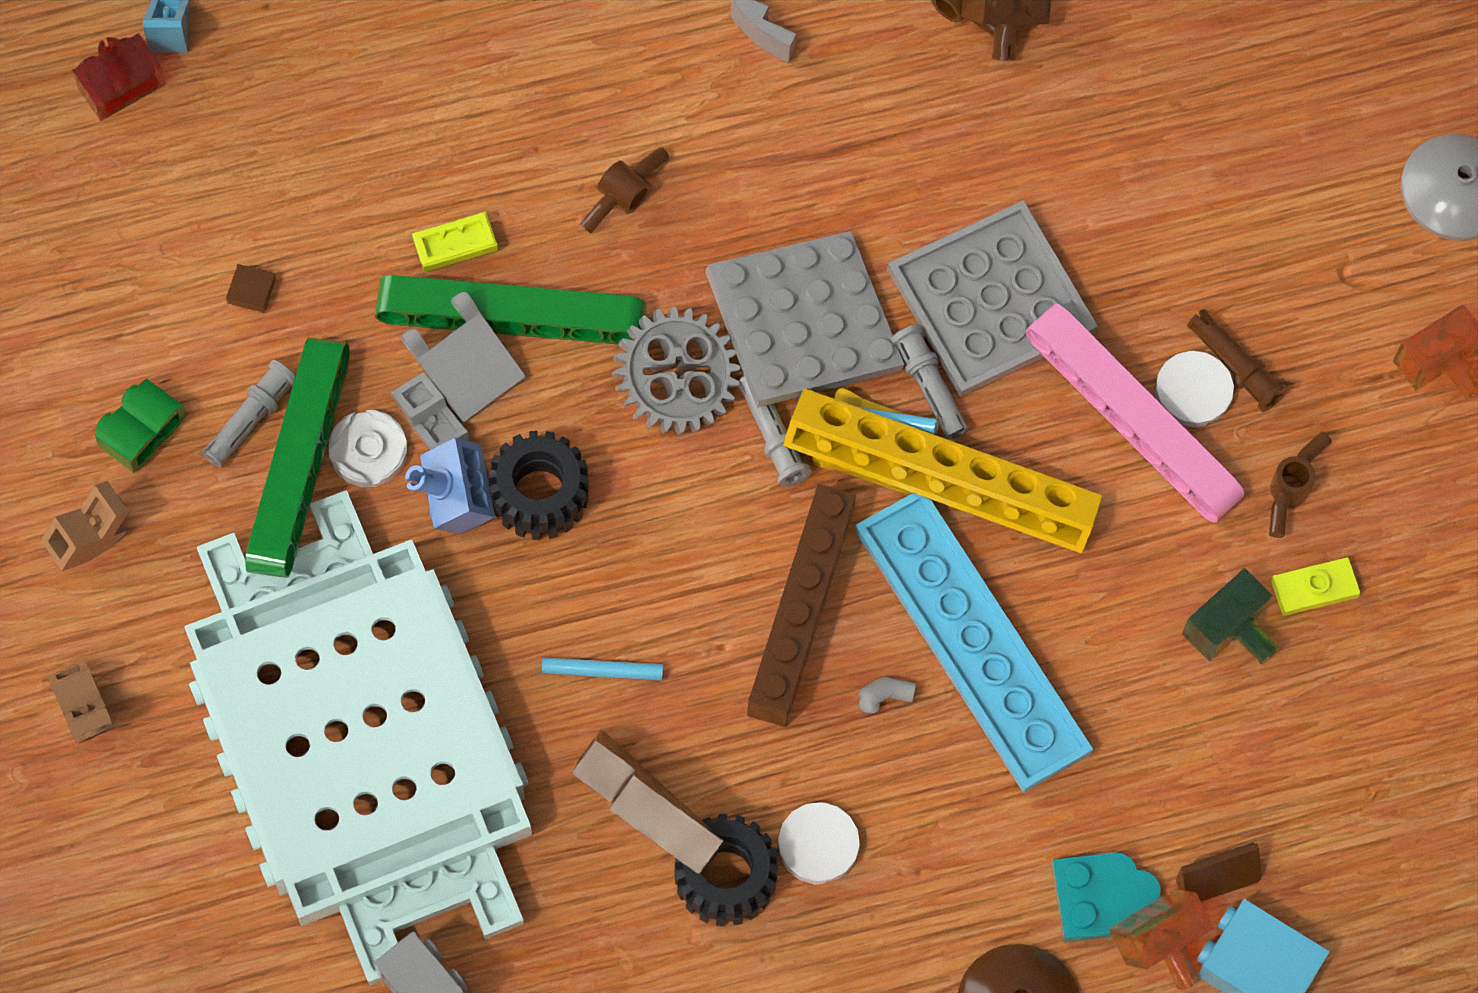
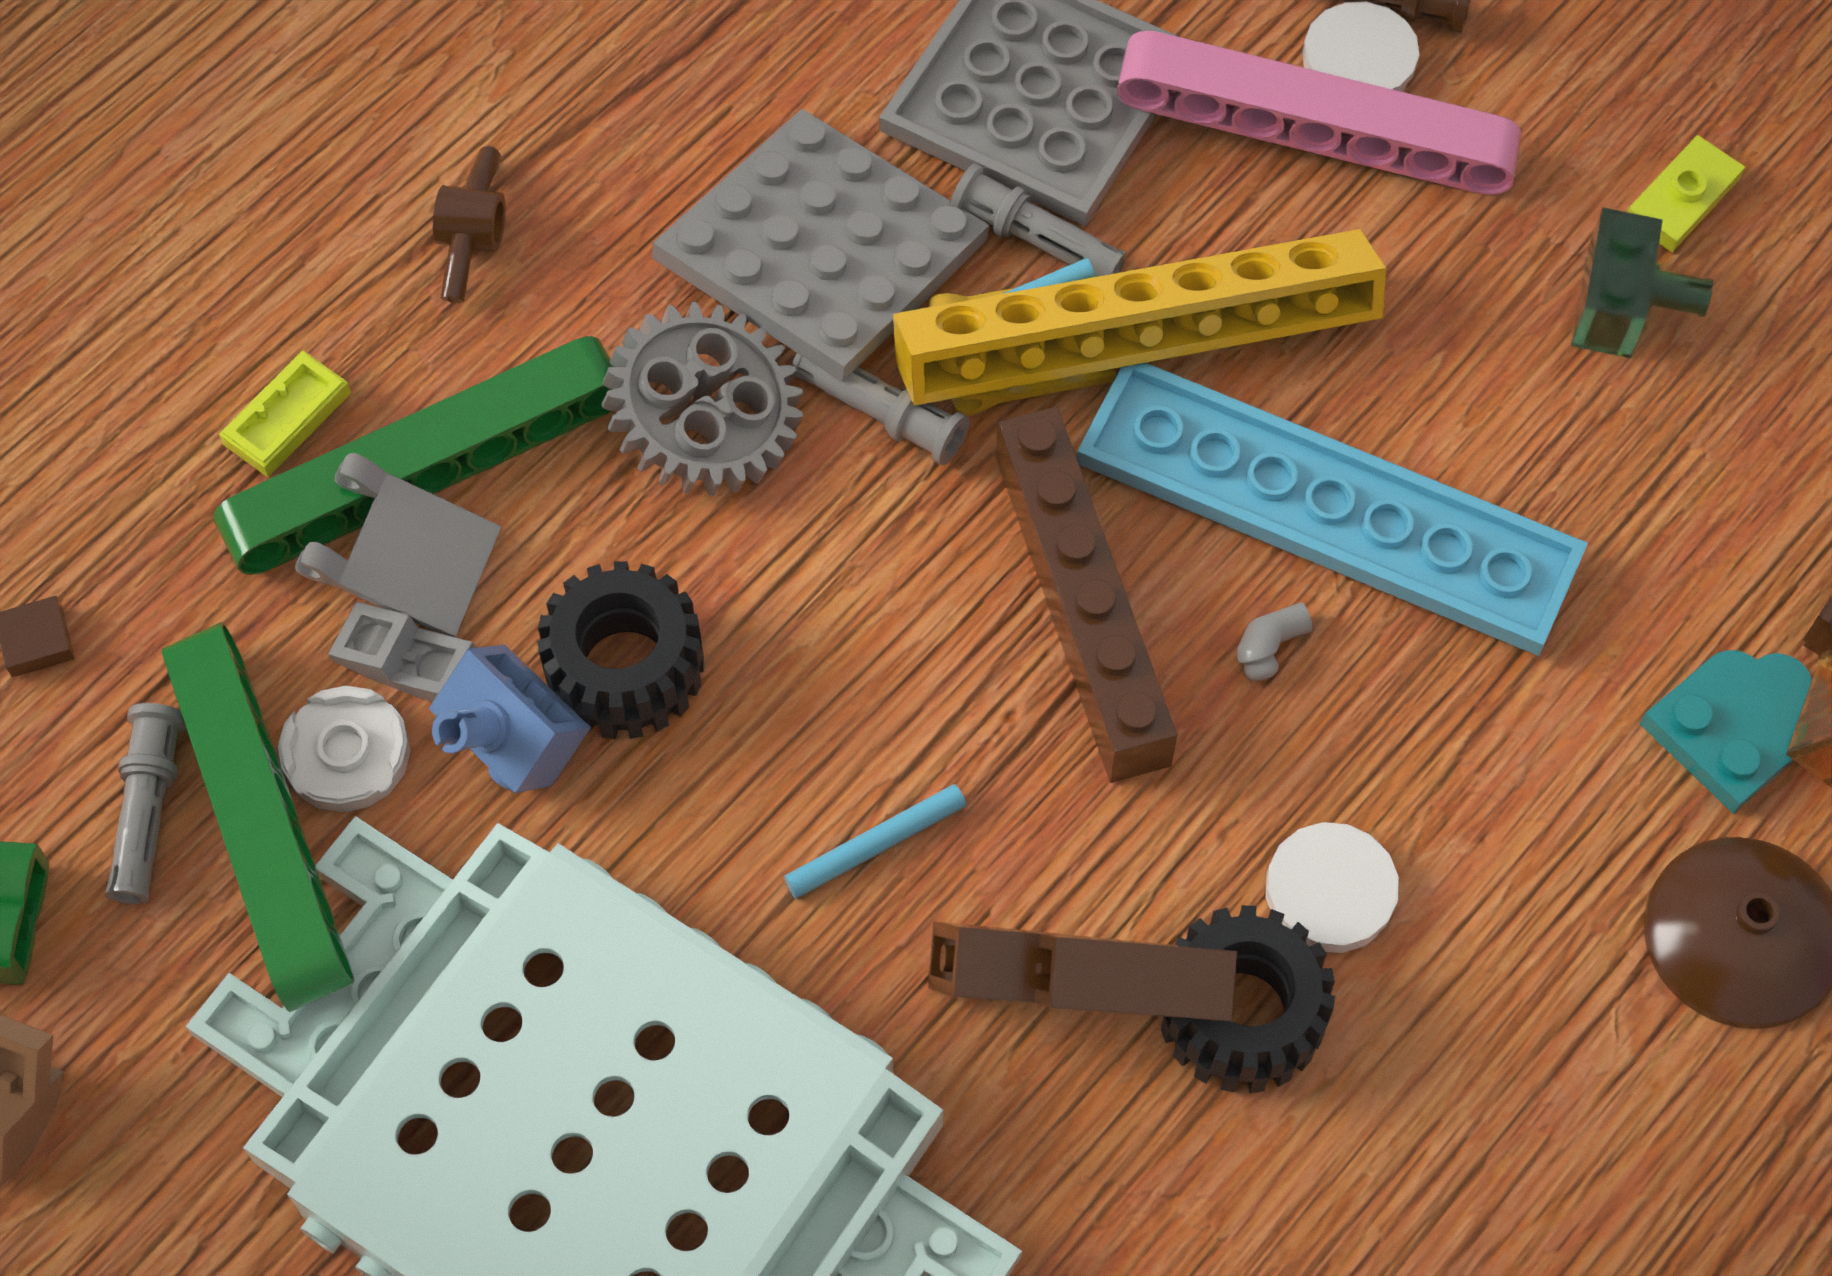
camera: 30 degrees left, 5 degrees down
(1288, 496) = (1567, 86): reddish brown piece -> none

